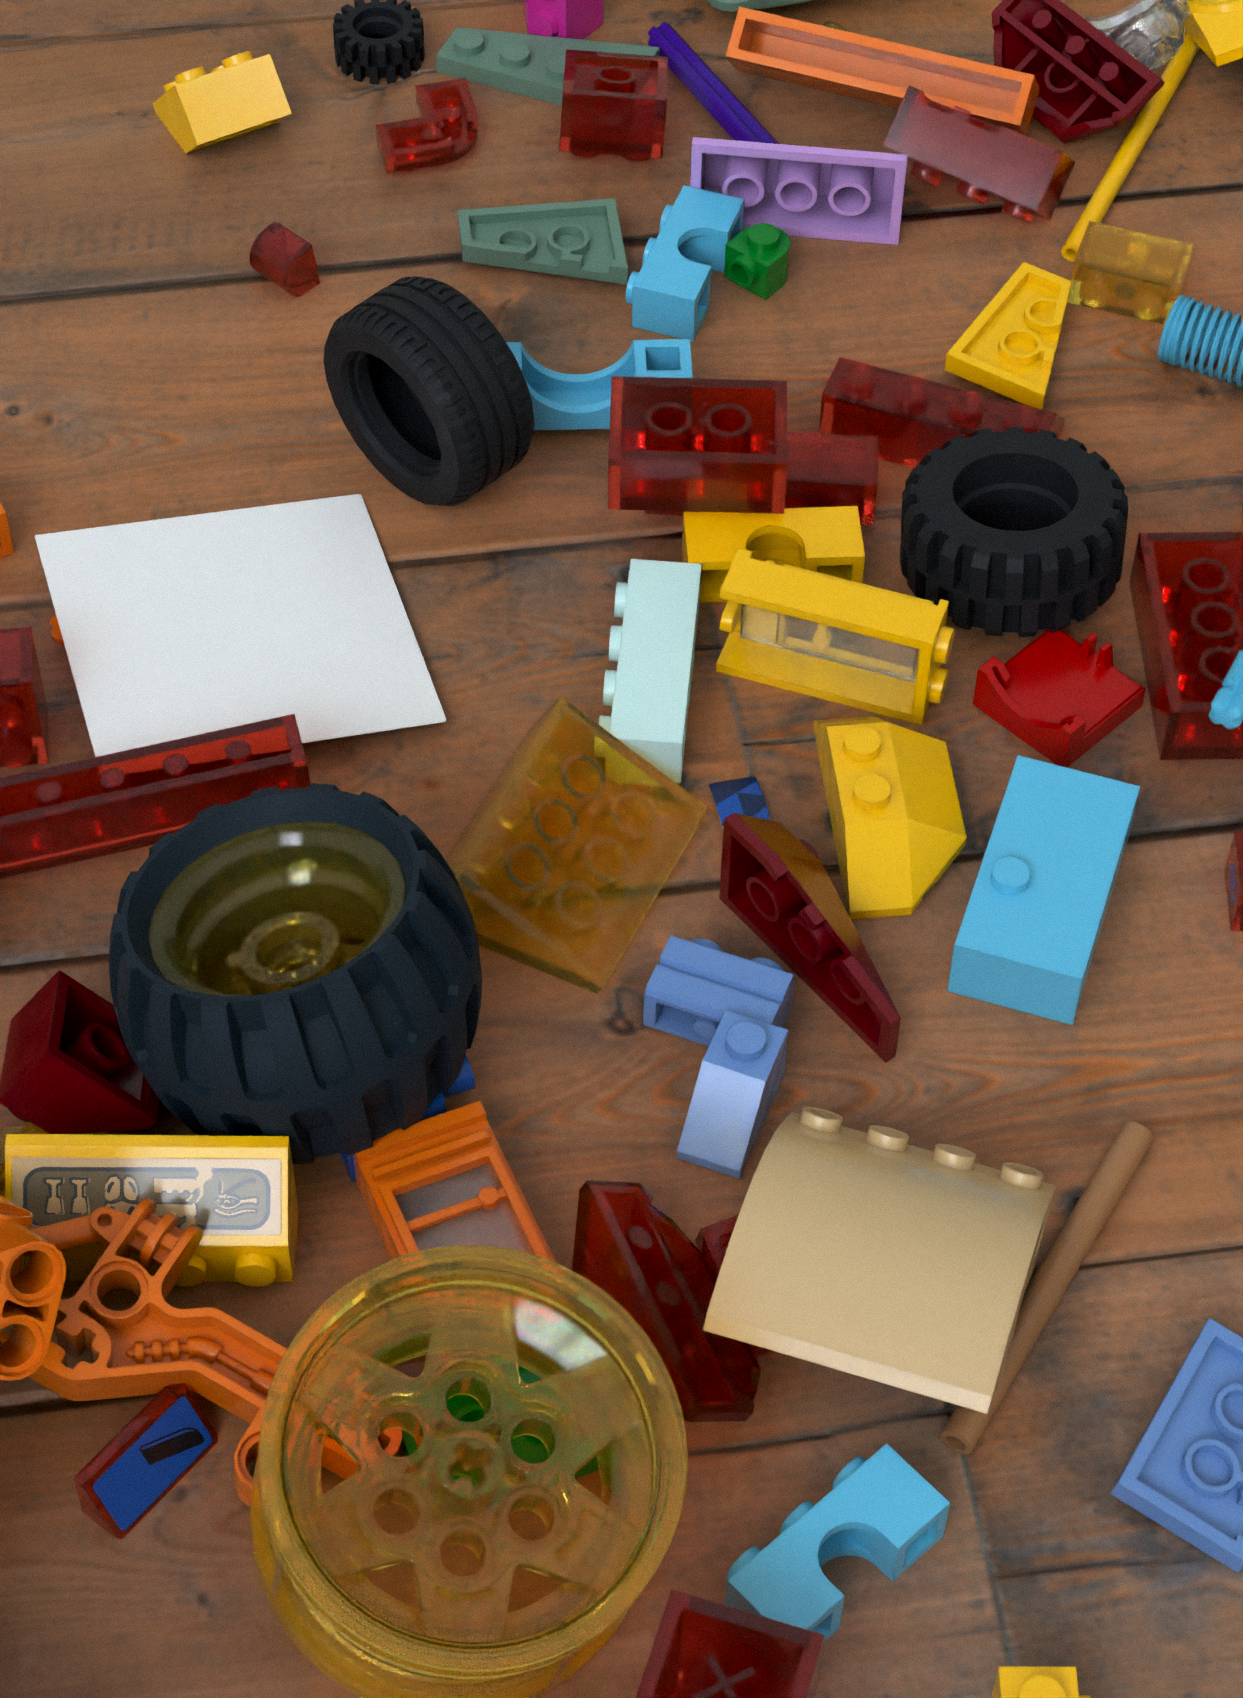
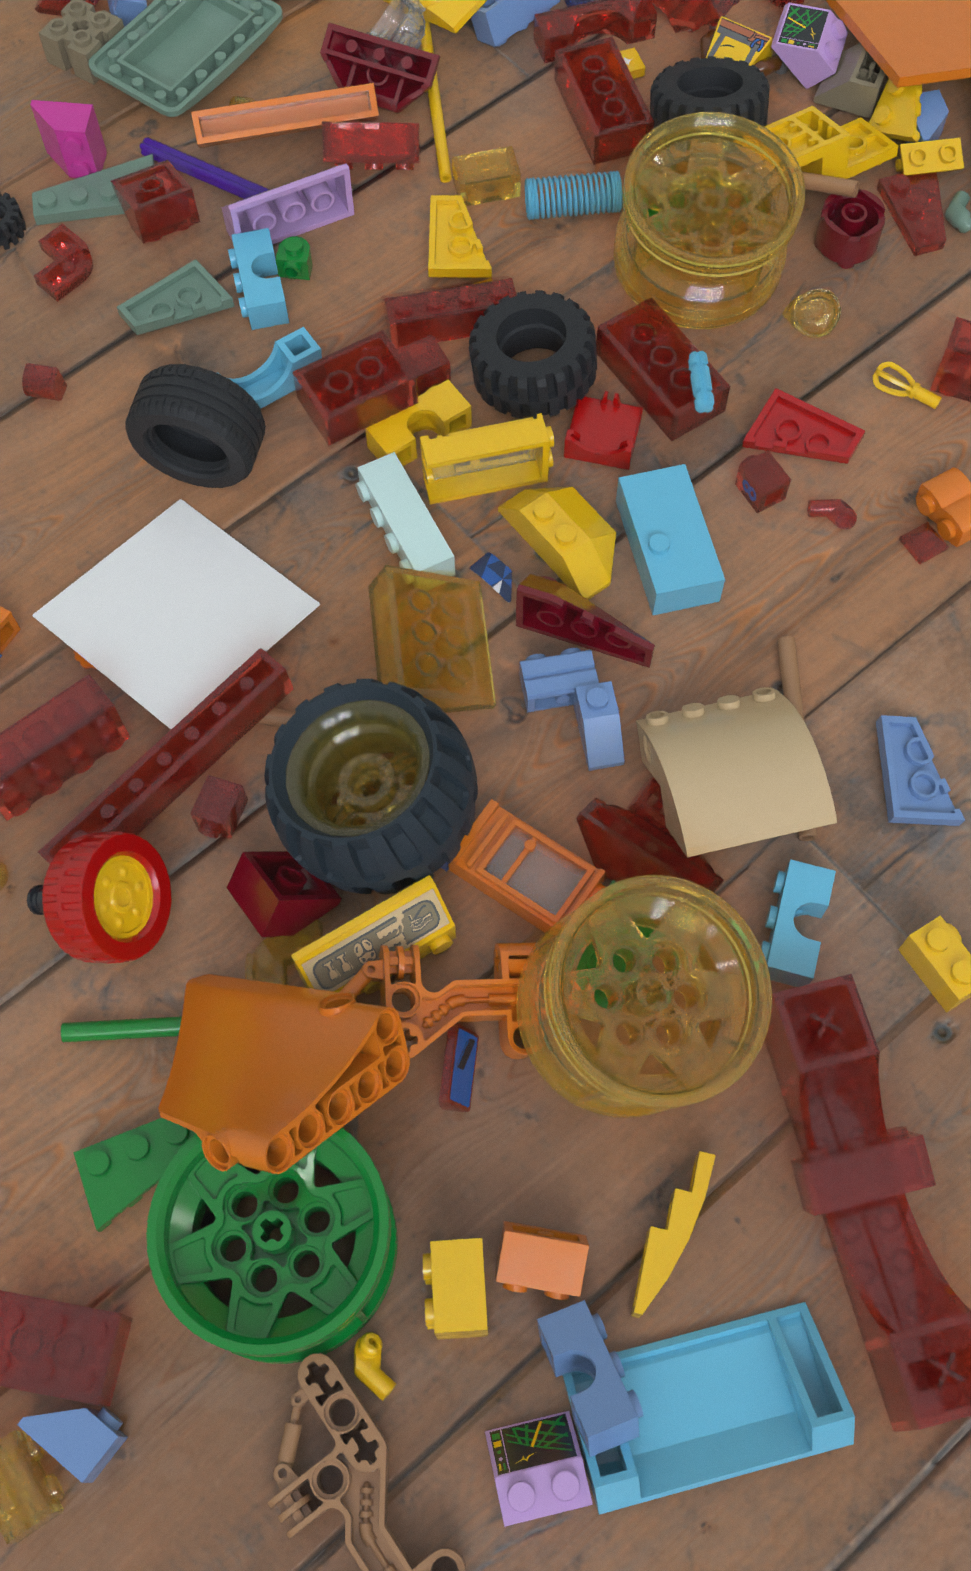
camera: 30 degrees left, 15 degrees up
(80, 909) = (219, 807): none -> clear red brick

